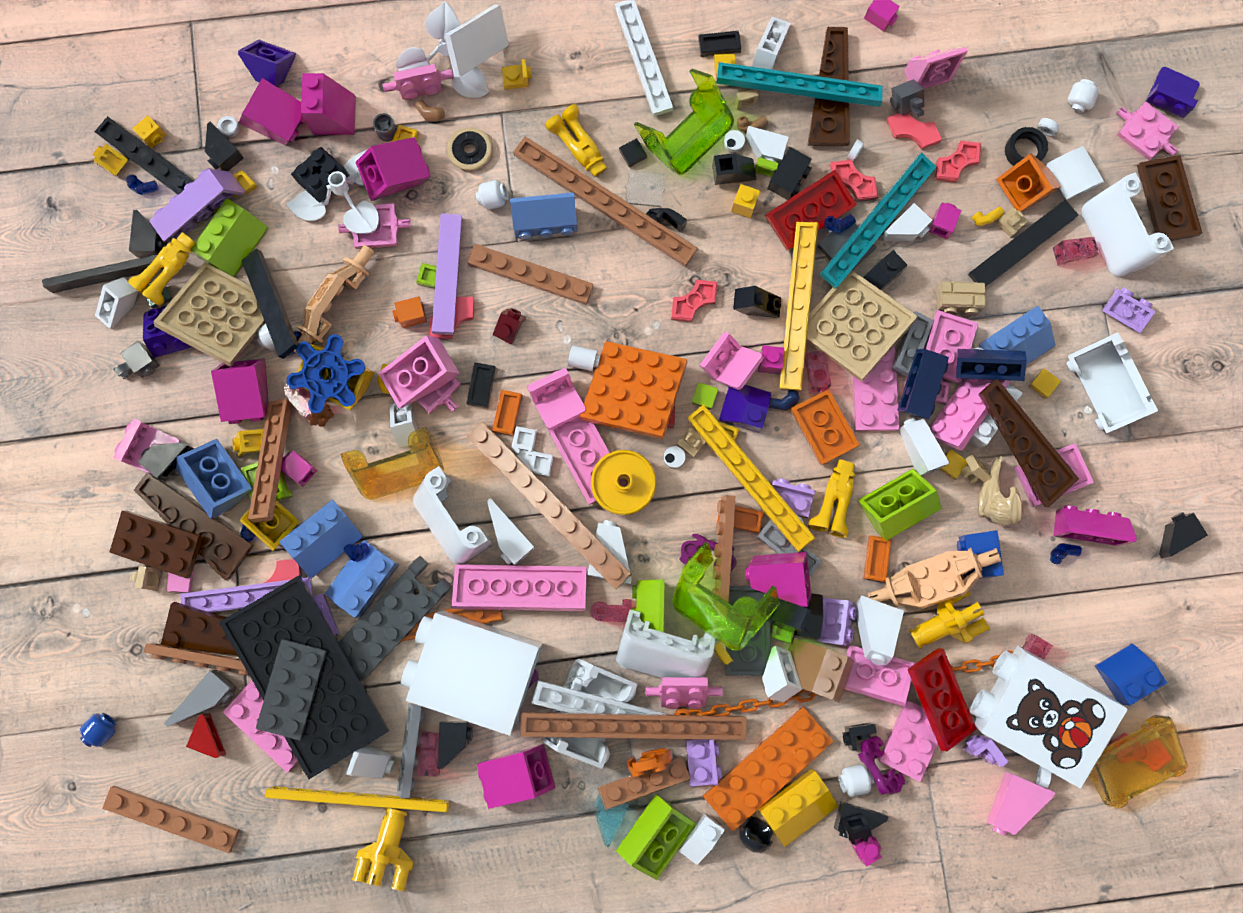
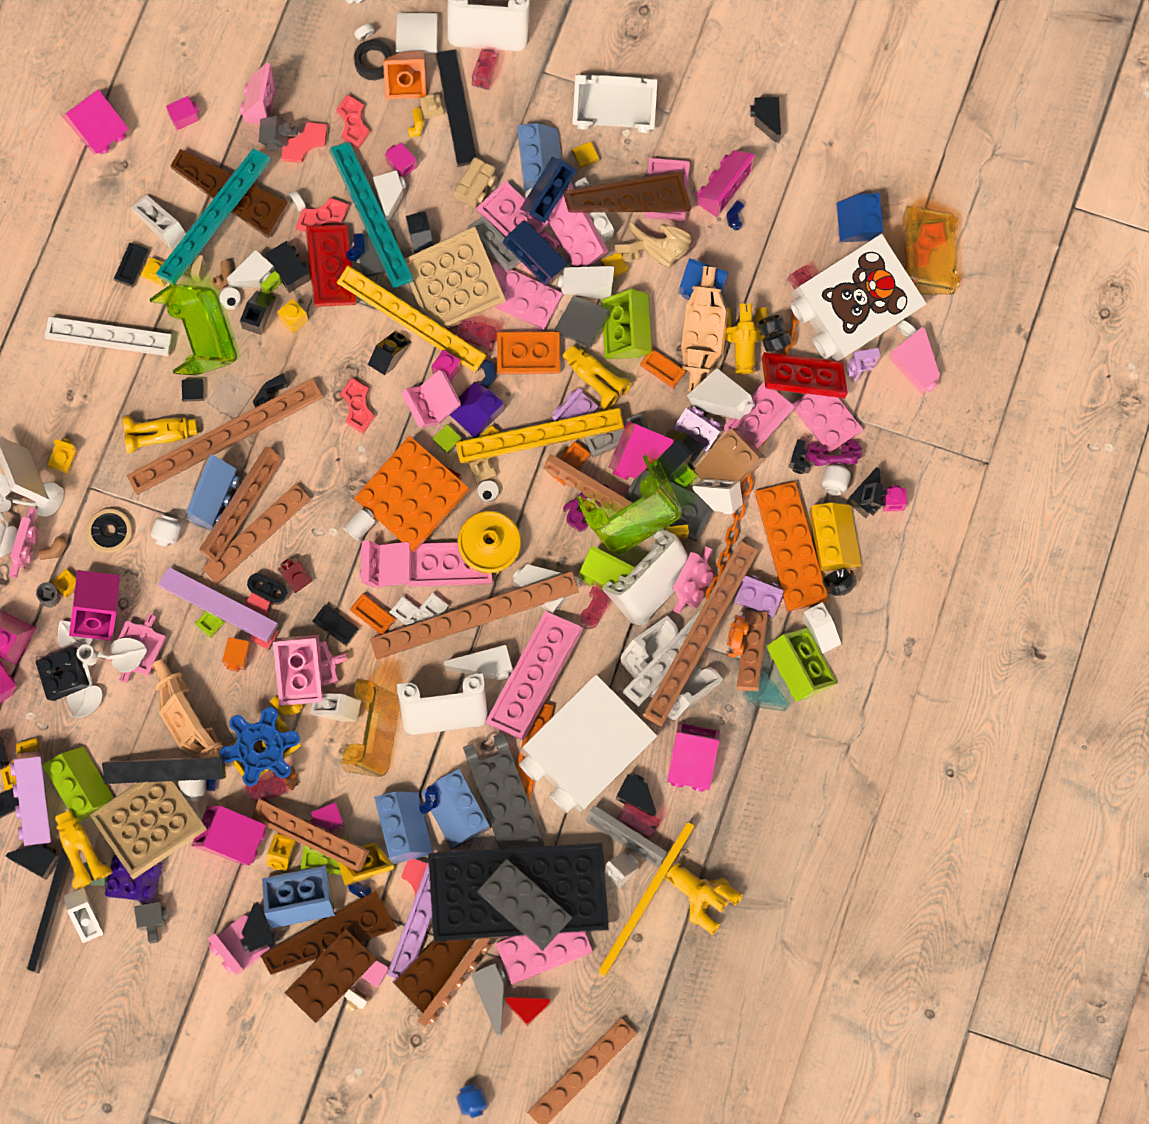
camera: 65 degrees left, 5 degrees down
(483, 309) = (268, 588): none -> black plate
(547, 245) = (240, 504): none -> nougat plate
(881, 461) = (582, 321): none -> dark grey tile
(969, 647) = (776, 339): none -> black wheel
(1129, 310) = (559, 54): lavender bracket -> none

